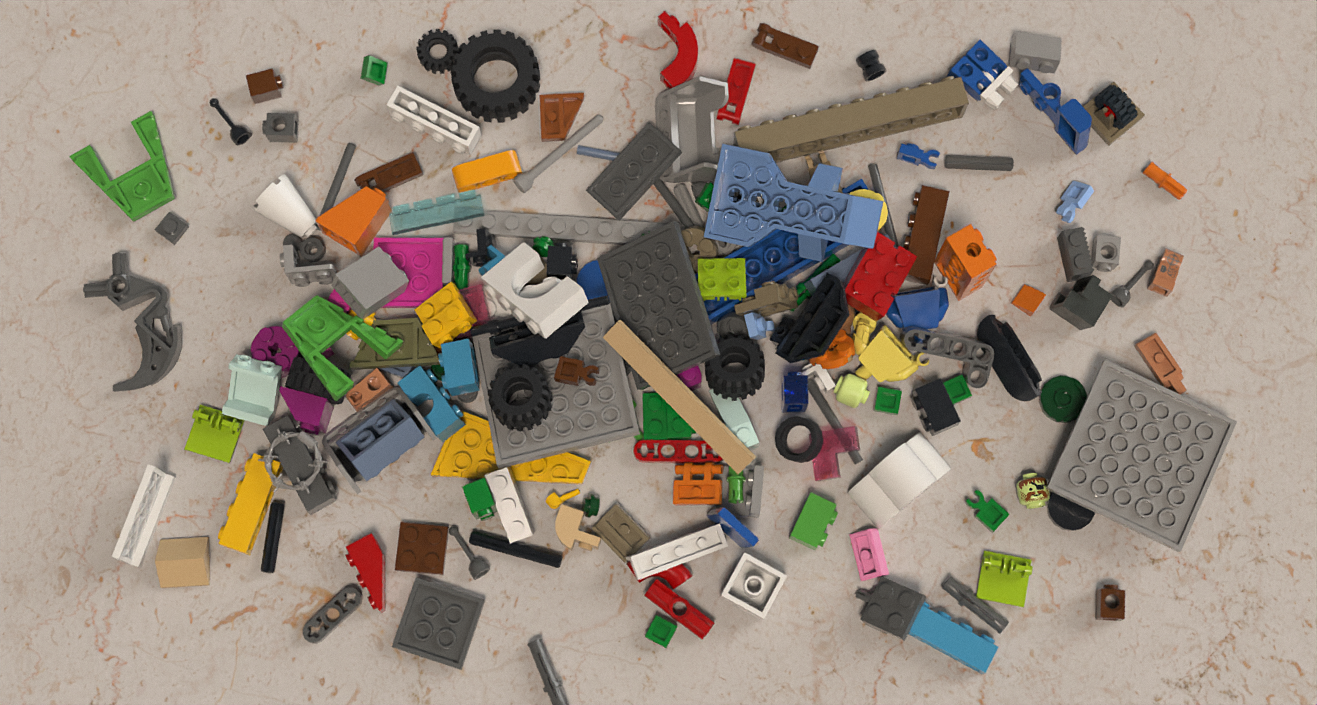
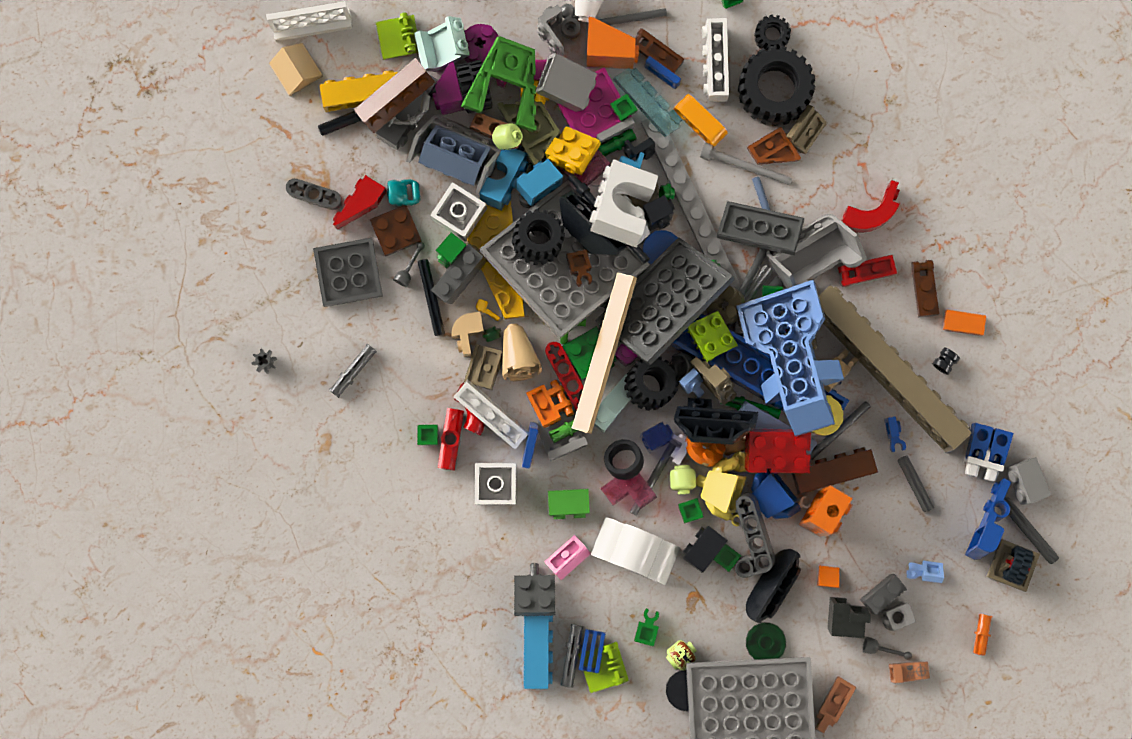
camera: 60 degrees right, 5 degrees up
(281, 466) = (394, 95): none -> brick
(384, 524) = (398, 195): none -> teal piece
(392, 373) = (507, 136): none -> yellowish green head
(414, 182) = (662, 72): none -> blue tile
(429, 239) = (623, 107): none -> green plate
(443, 468) = (458, 211): none -> white brick
(557, 71) = (806, 129): none -> dark tan plate
(629, 489) = (518, 355): none -> tan cone
(841, 27) = (964, 322): none -> orange tile
(998, 593) = (588, 668): none -> blue tile
(1090, 78) = (1031, 533): none -> dark grey axle

